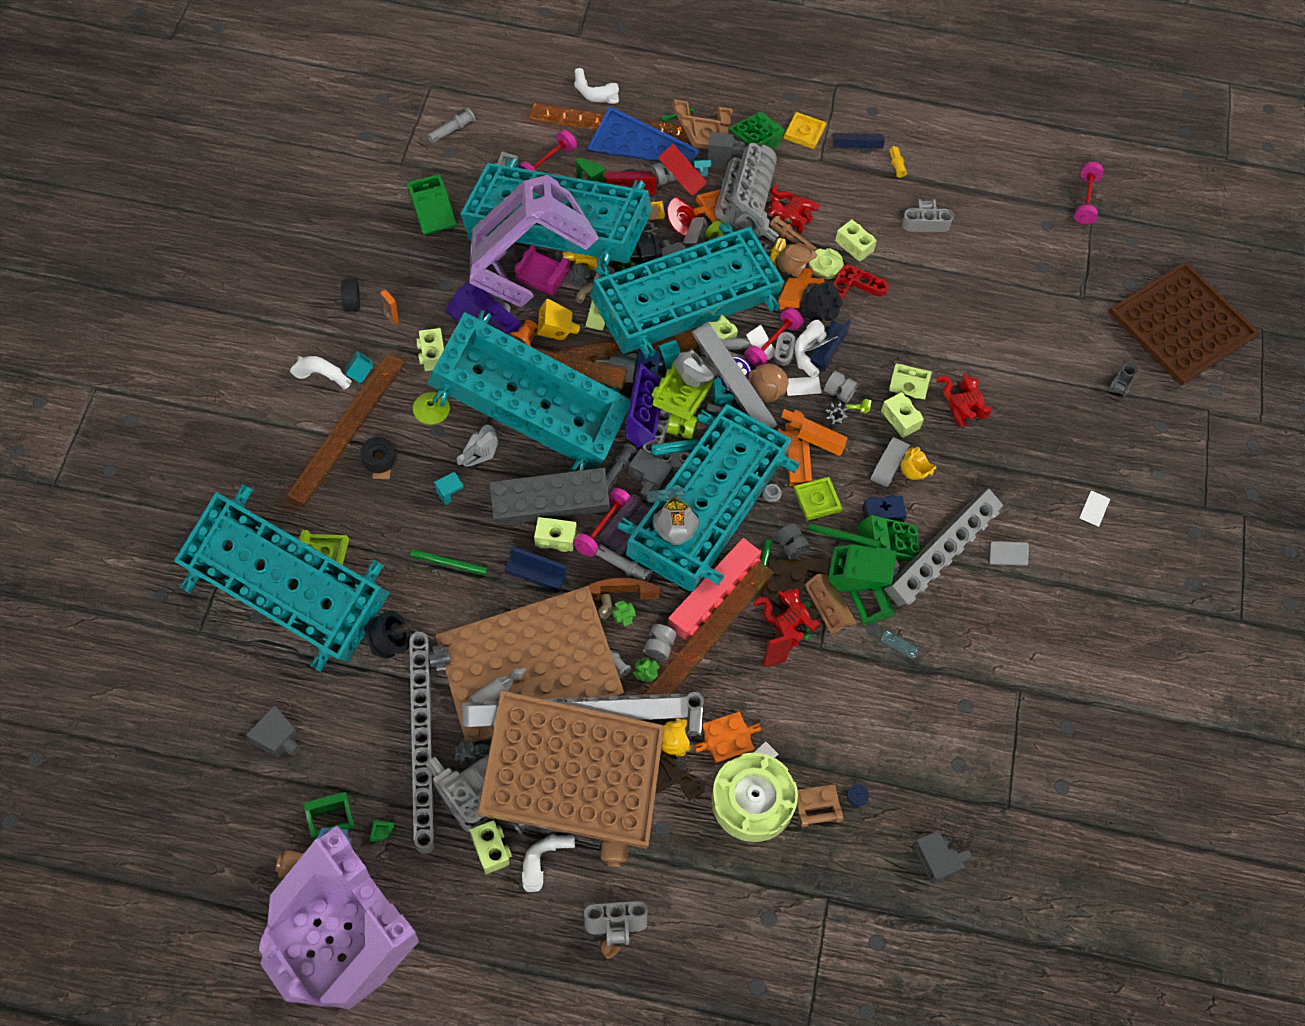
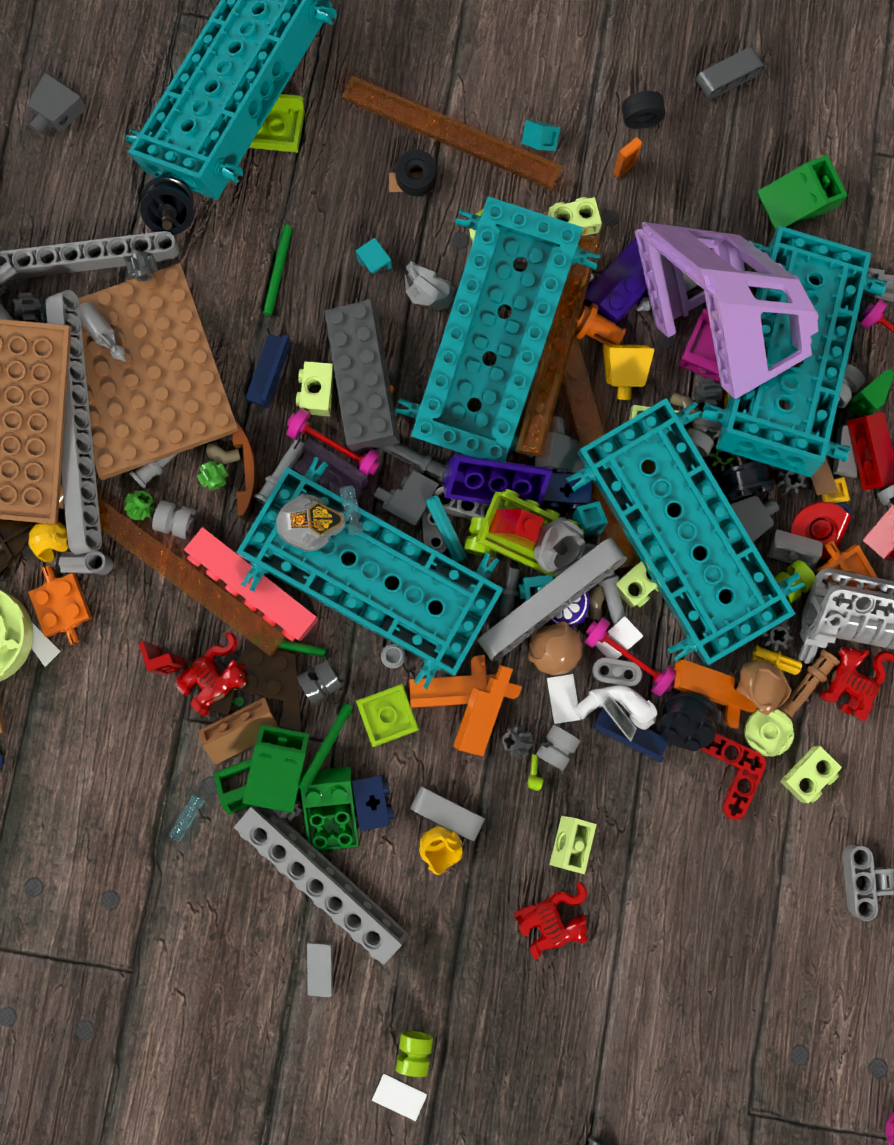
camera: 90 degrees right, 20 degrees up
(315, 364) = (530, 79): white piece -> none
(326, 241) = (730, 73): none -> dark grey beam
(684, 382) = (517, 526): none -> red slope
(902, 423) = (507, 833): yellowish green brick -> none
(1064, 491) = (414, 1059): none -> lime wheel

